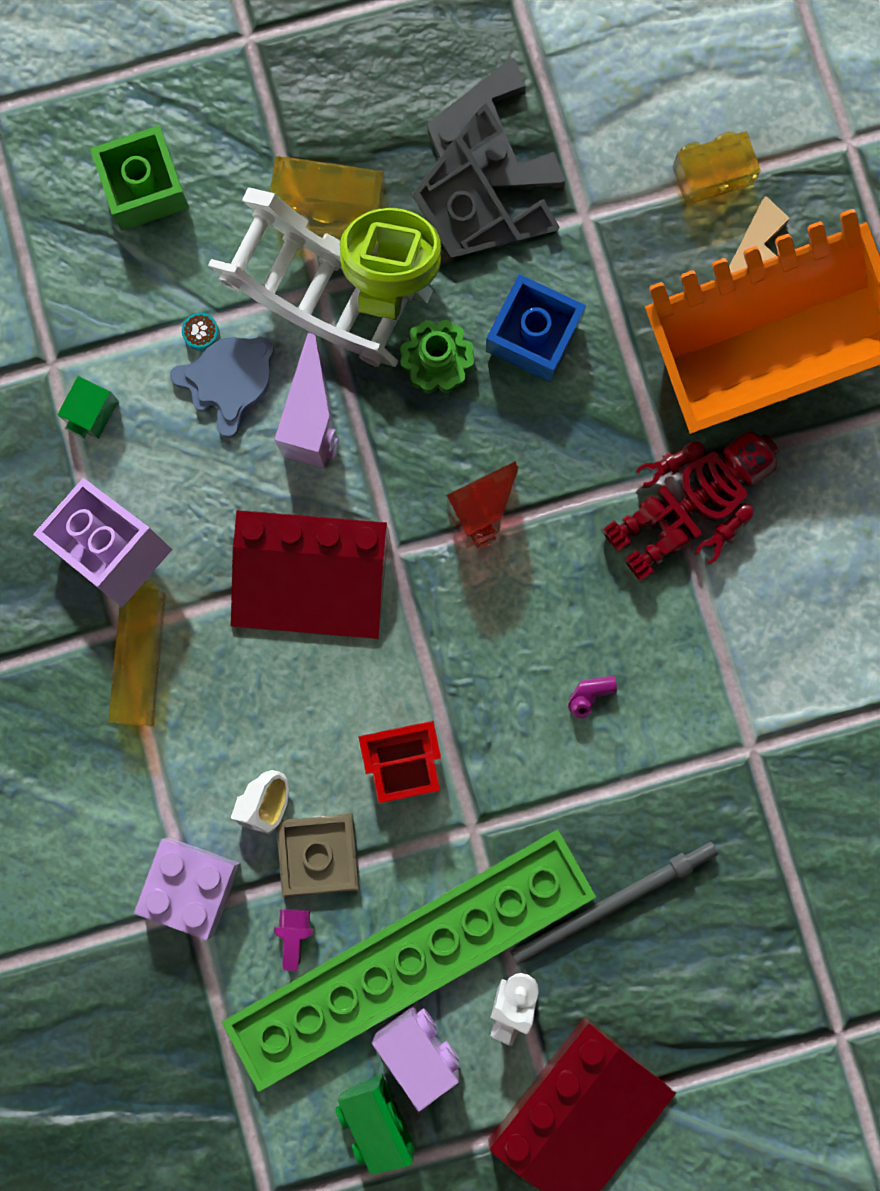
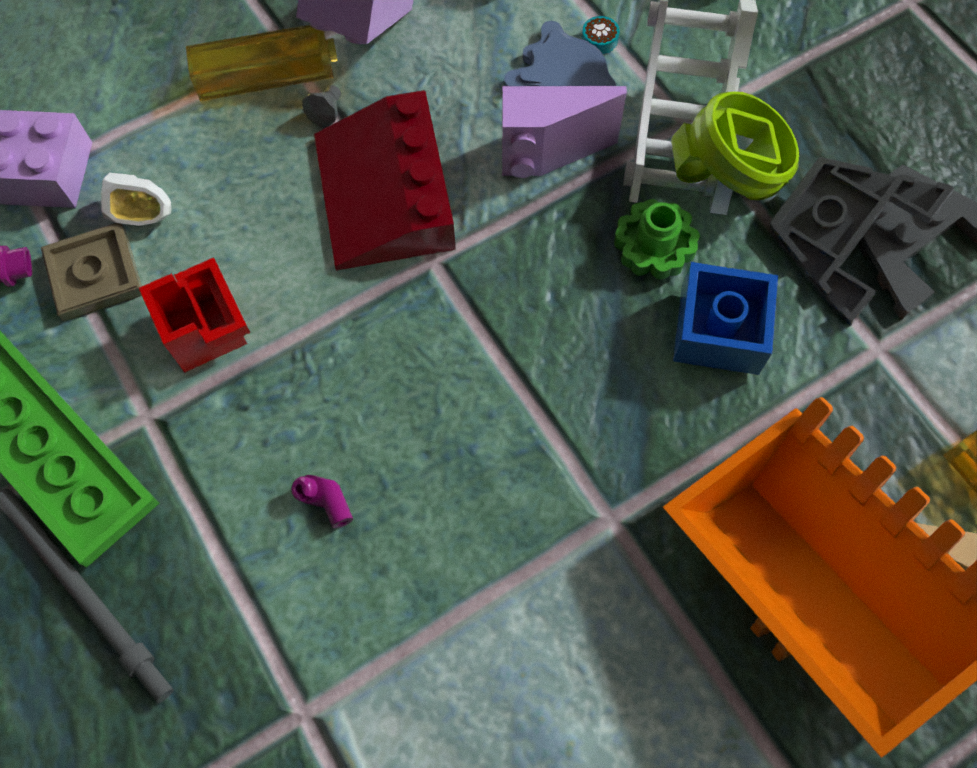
camera: 70 degrees right, 15 degrees down
(204, 609) = (322, 106): none -> dark grey rock
(327, 189) = (788, 84): clear yellow brick -> none
(482, 505) = (504, 315): clear red slope -> none
(745, 462) = (657, 600): dark red piece -> none

